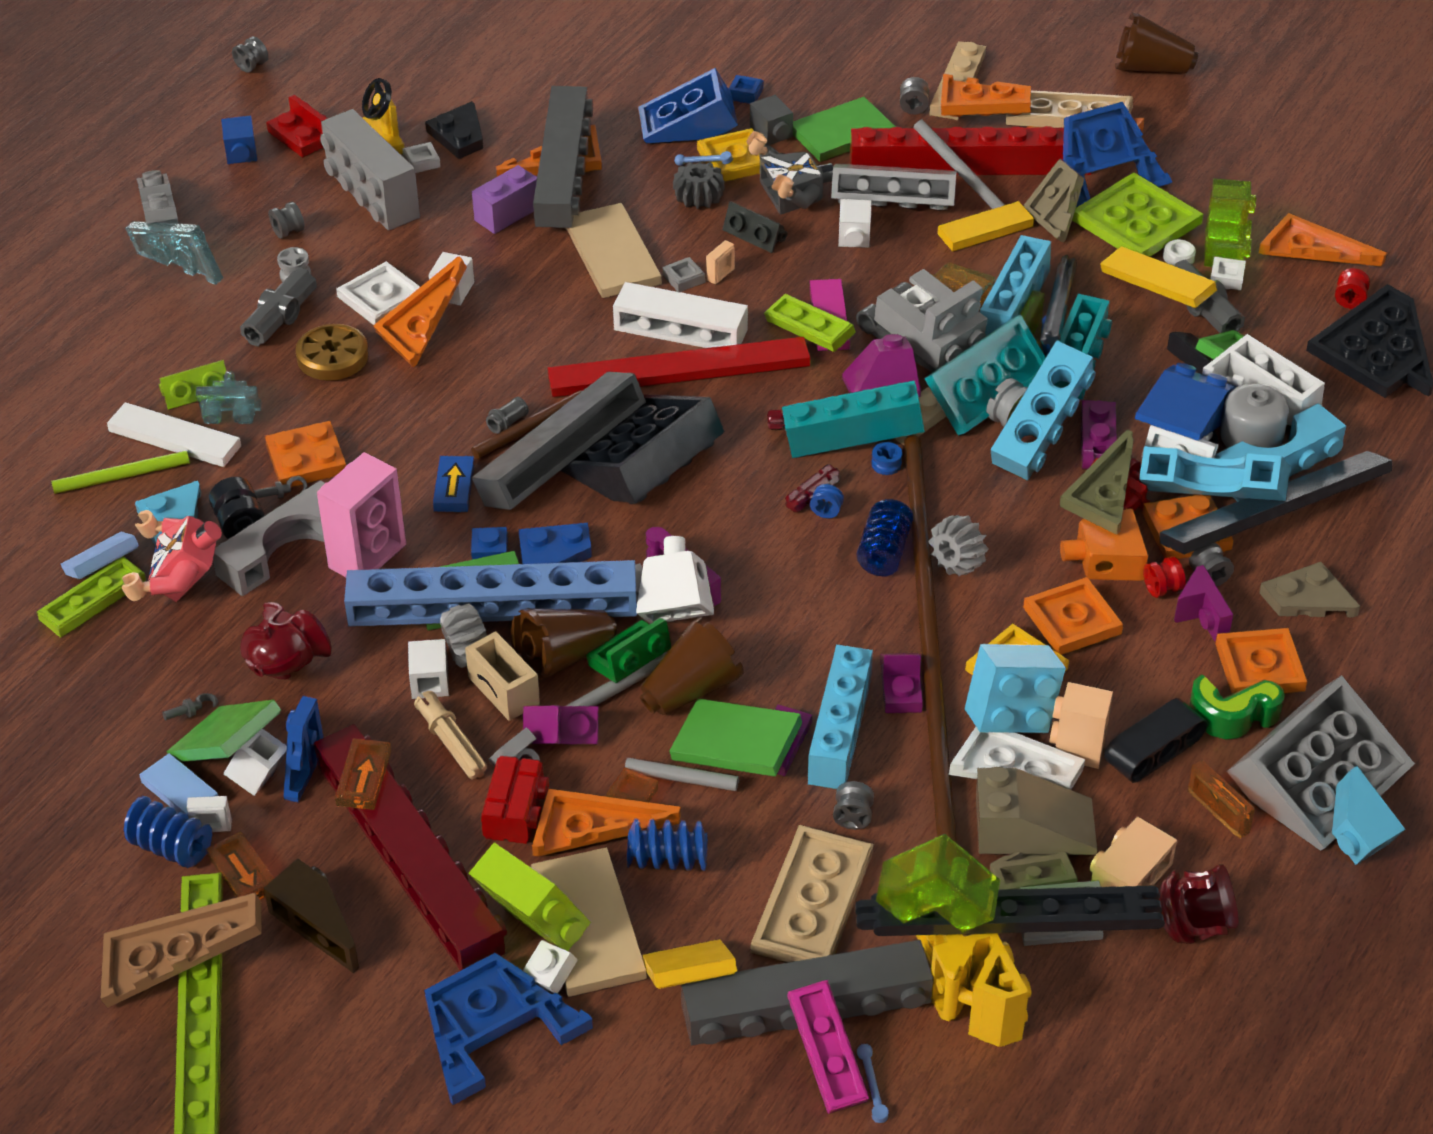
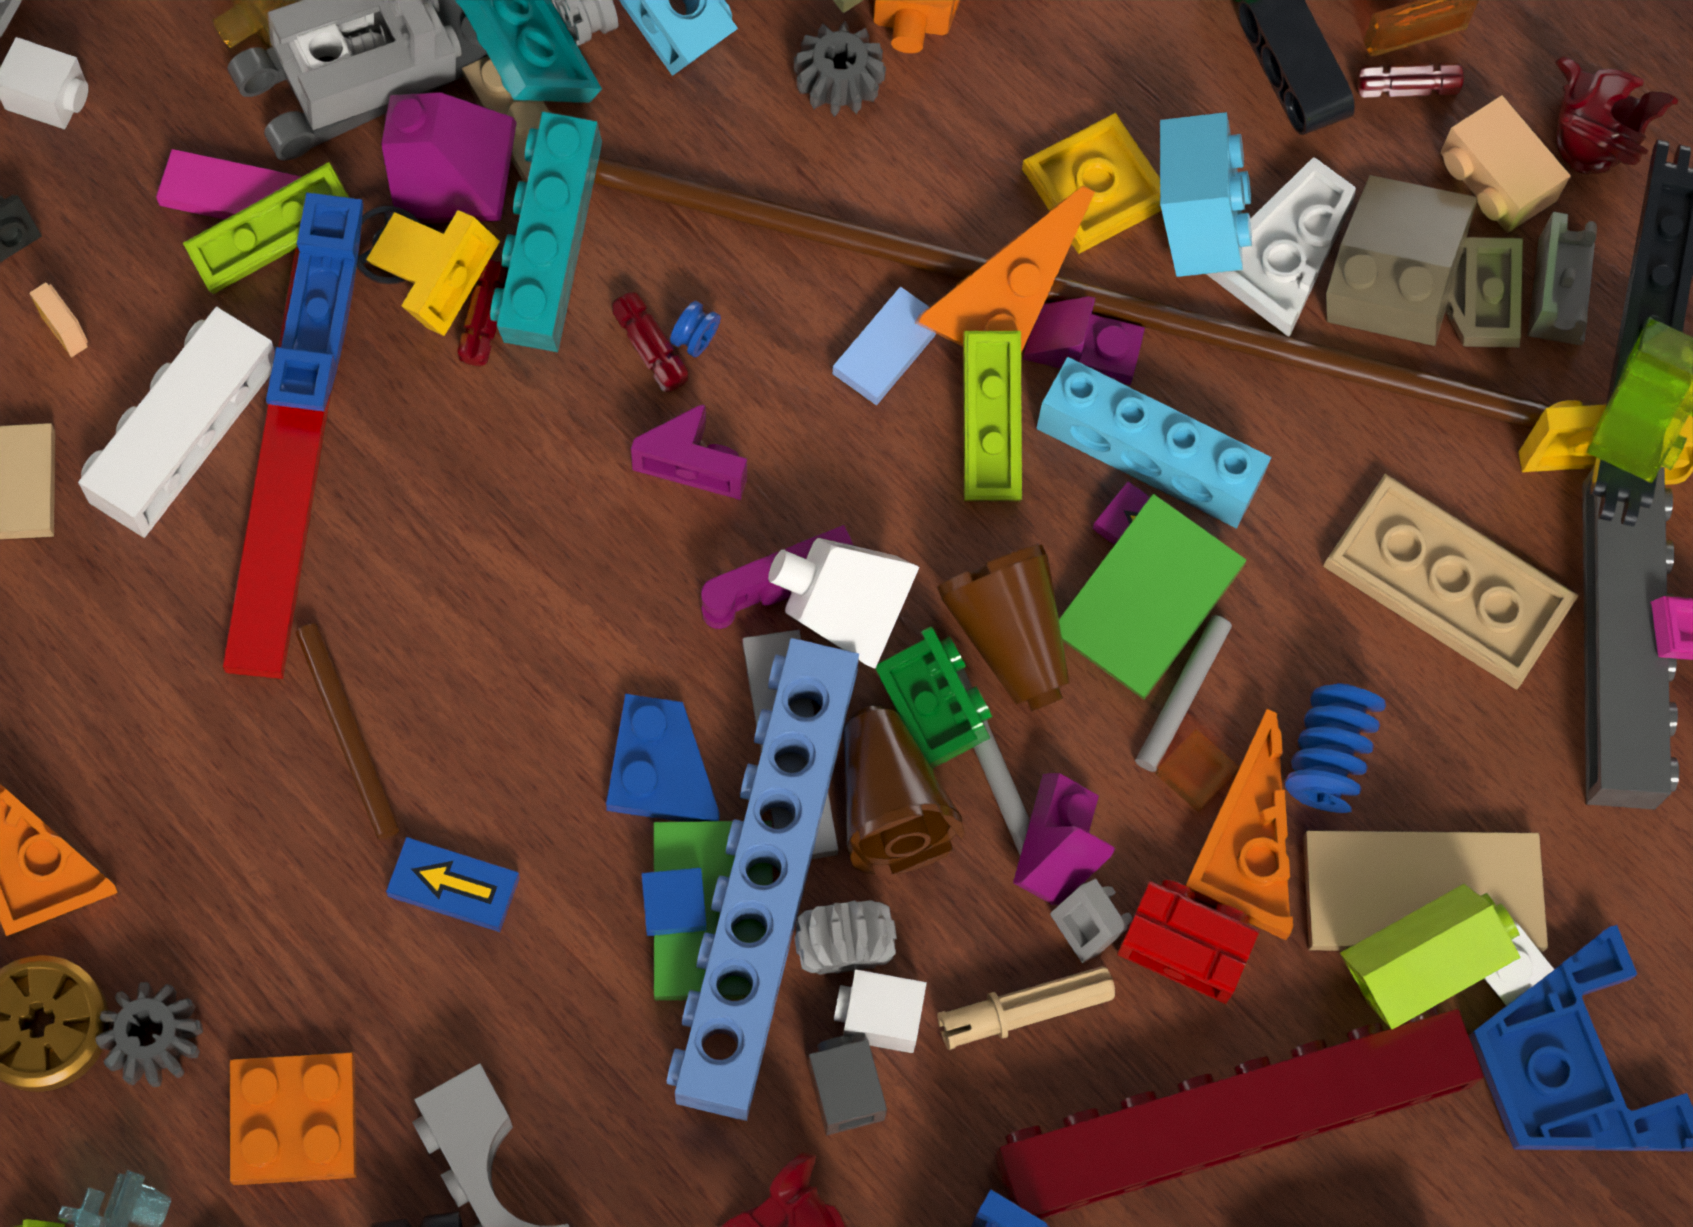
camera: 80 degrees left, 25 degrees up
(280, 489) = (371, 1178): dark grey hand -> none
(335, 387) = (128, 1049): none -> dark grey gear
(361, 515) = (562, 1043): bright pink brick -> none
(363, 774) = (1119, 1151): clear orange tile -> none
(379, 661) = (846, 1084): none -> dark grey brick
(465, 556) = (674, 902): none -> blue tile
(488, 541) = (616, 859): blue plate -> none
(502, 418) = (326, 771): dark grey pin -> none
(502, 675) = (950, 899): tan brick -> none
(558, 440) = (429, 689): dark grey brick -> none
(647, 447) = (472, 567): black slope -> none
(684, 274) = (50, 388): light grey tile -> none
(689, 964) = (1561, 770): yellow tile -> none
(748, 512) = (675, 455): none -> magenta slope
(767, 349) = (318, 303): none -> blue slope
(812, 379) = (437, 263): none -> yellow piece
(820, 639) = (992, 416): none -> lime tile
(853, 805) = (1317, 477): flat silver wheel -> none
(857, 590) = (885, 348): none -> light blue tile
(884, 537) = (807, 273): clear blue piece -> none
(886, 458) = (605, 207): blue bush -> none
(907, 624) = (1014, 281): none -> orange wing
(958, 545) = (869, 175): light grey gear -> none
(1029, 524) = (839, 49): none -> dark grey gear
(1073, 616) = (1034, 77): orange plate -> none
(1082, 722) = (1277, 132): light nougat brick -> none
(1176, 807) = (1410, 79): none -> axle

